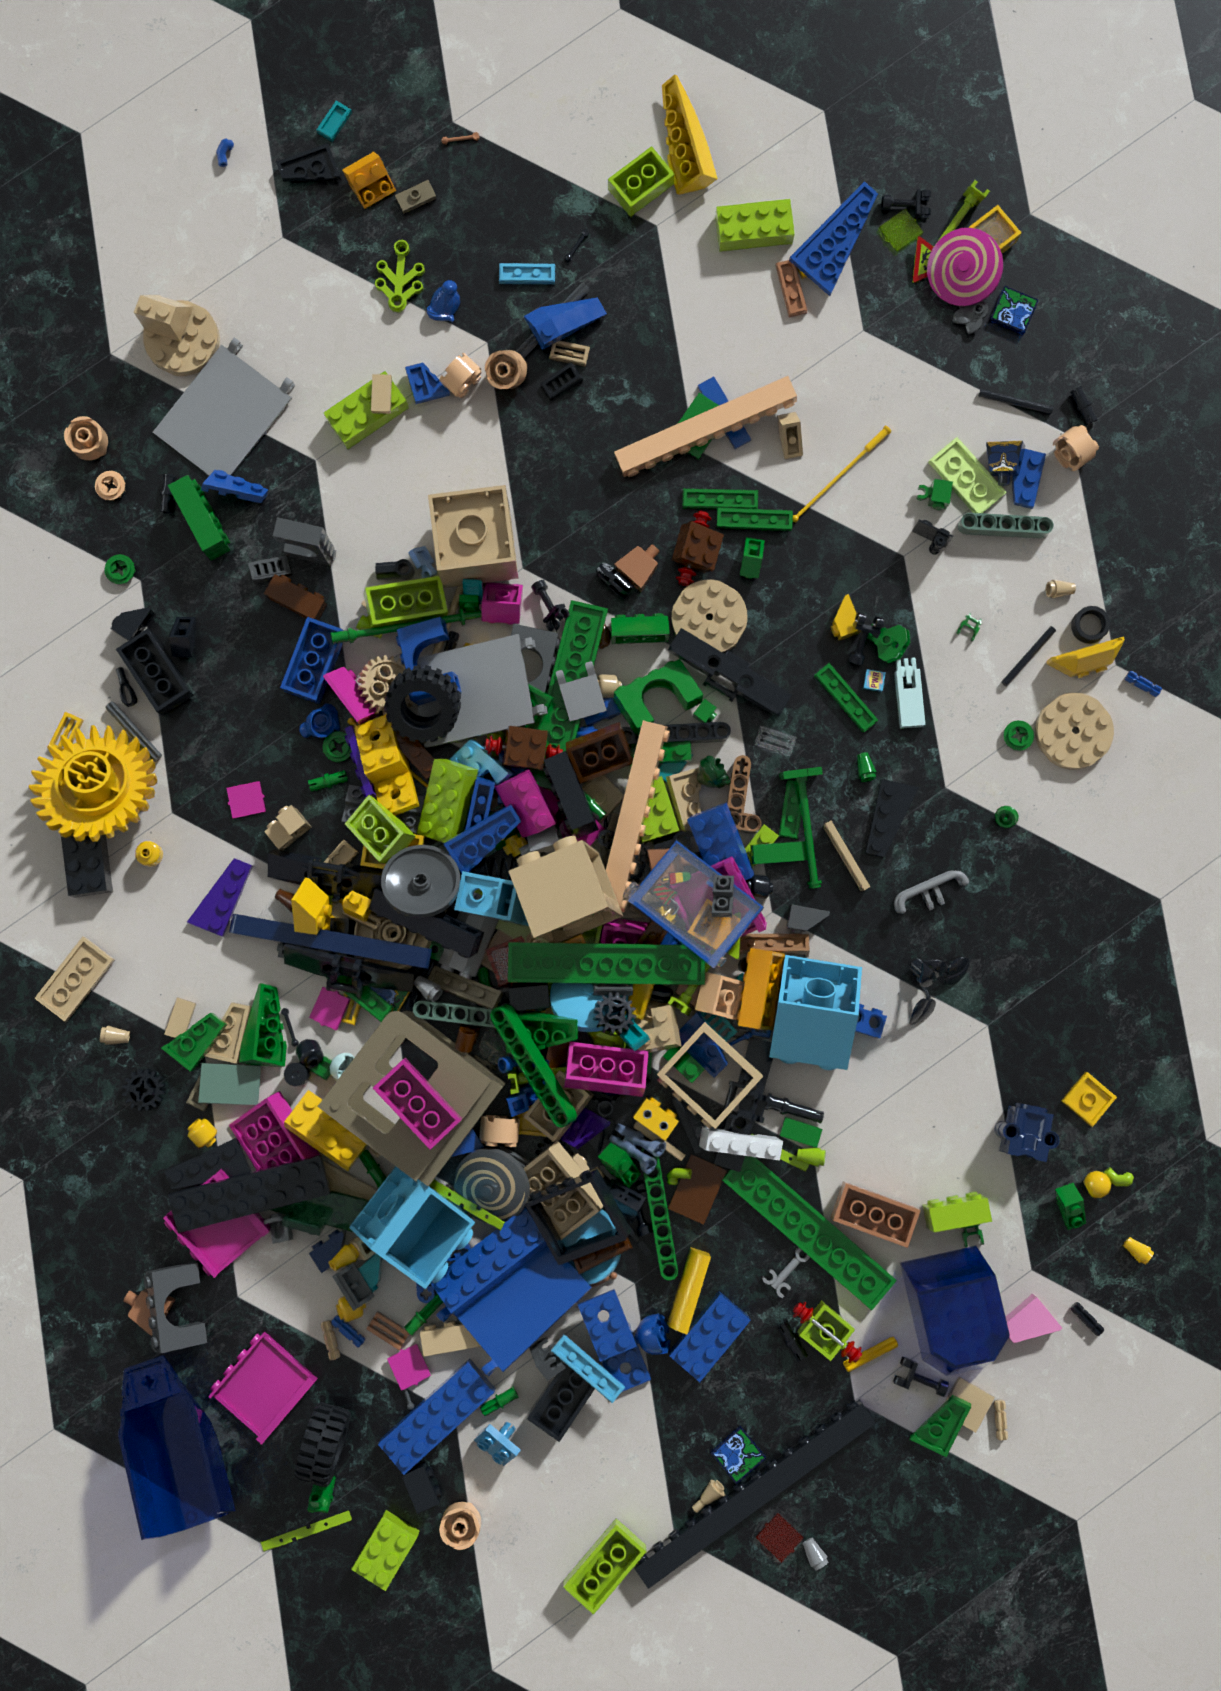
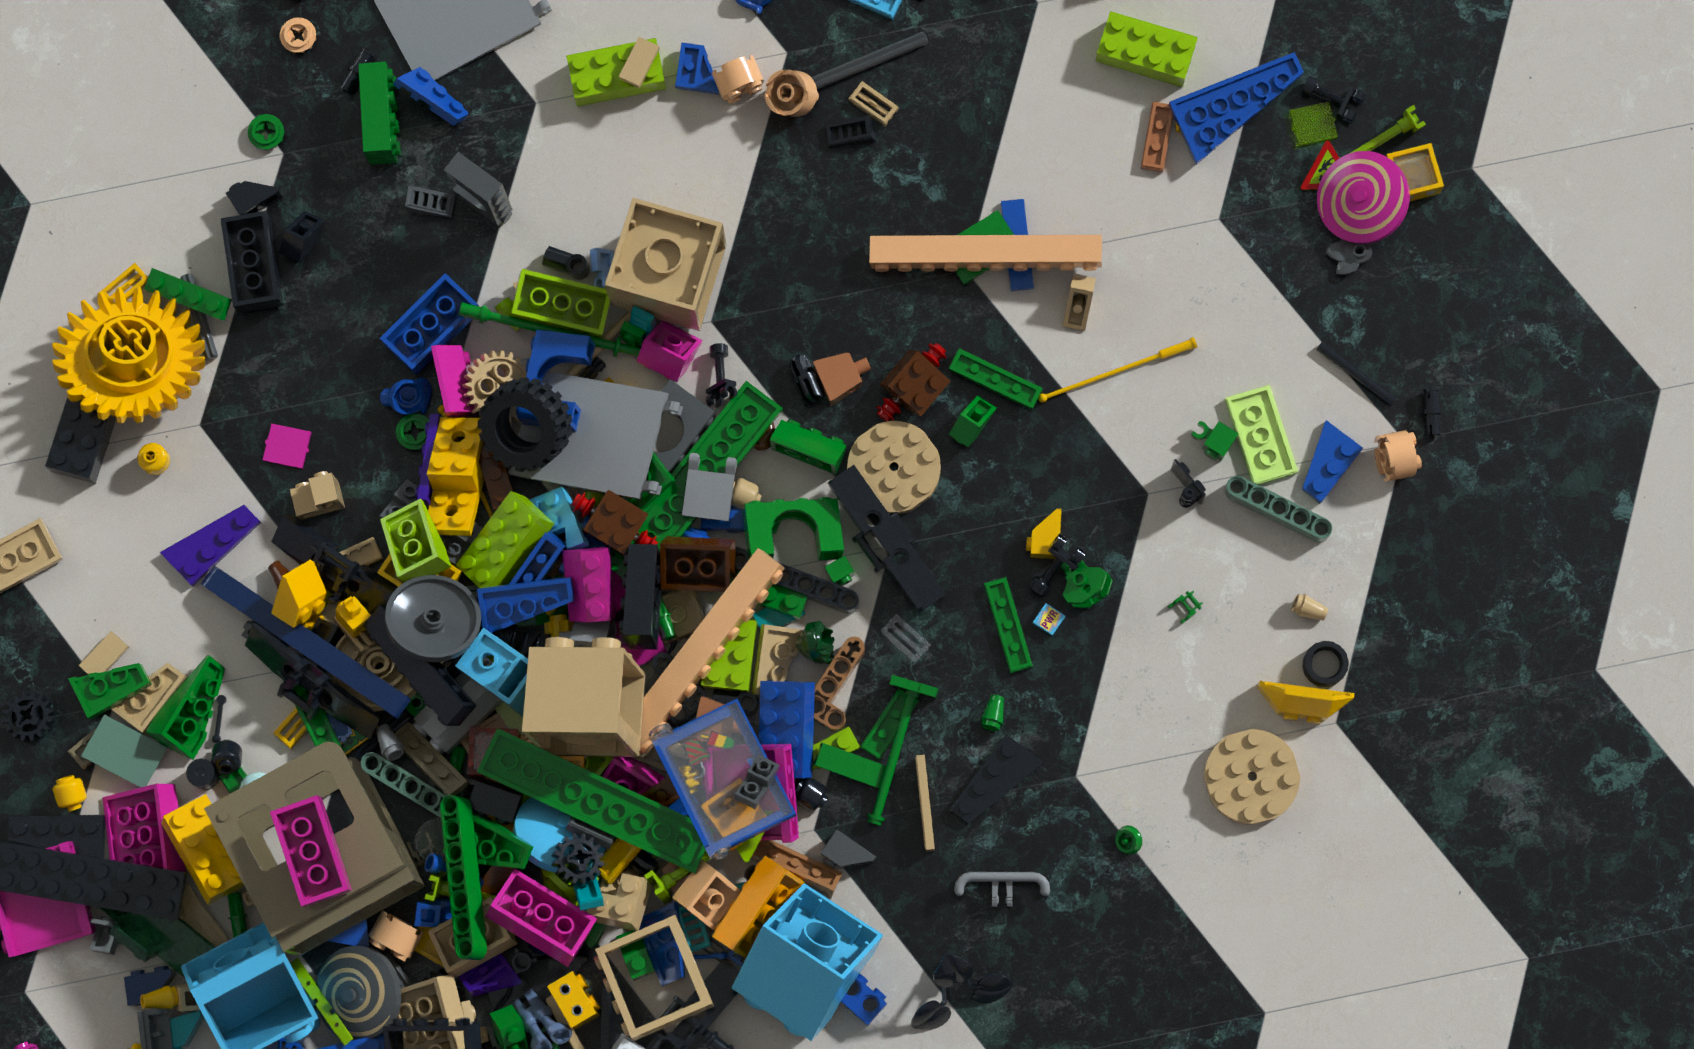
camera: 30 degrees right, 5 degrees down
(112, 1035) = (23, 642): tan cone -> none
(117, 717) = (188, 294): none -> green plate
(124, 682) = (212, 258): black piece -> none
(295, 597) = (443, 246): reddish brown brick -> none
(328, 780) = (386, 464): green pin -> none
(329, 1008) = (271, 718): dark pink piece -> none
(466, 1038) = (407, 817): reddish brown piece -> none
(560, 320) = (874, 64): blue wedge -> none
(719, 498) = (967, 339): green tile -> none
(909, 700) = (1079, 658): light aqua hinge -> none
(1005, 459) = (1310, 434): dark blue torso -> none
(1014, 310) = (1401, 269): tile -> none
(1022, 728) = (1194, 748): green gear -> none
(1028, 656) = (1239, 668): black bar -> none
(1143, 683) = (1356, 758): blue axle -> none

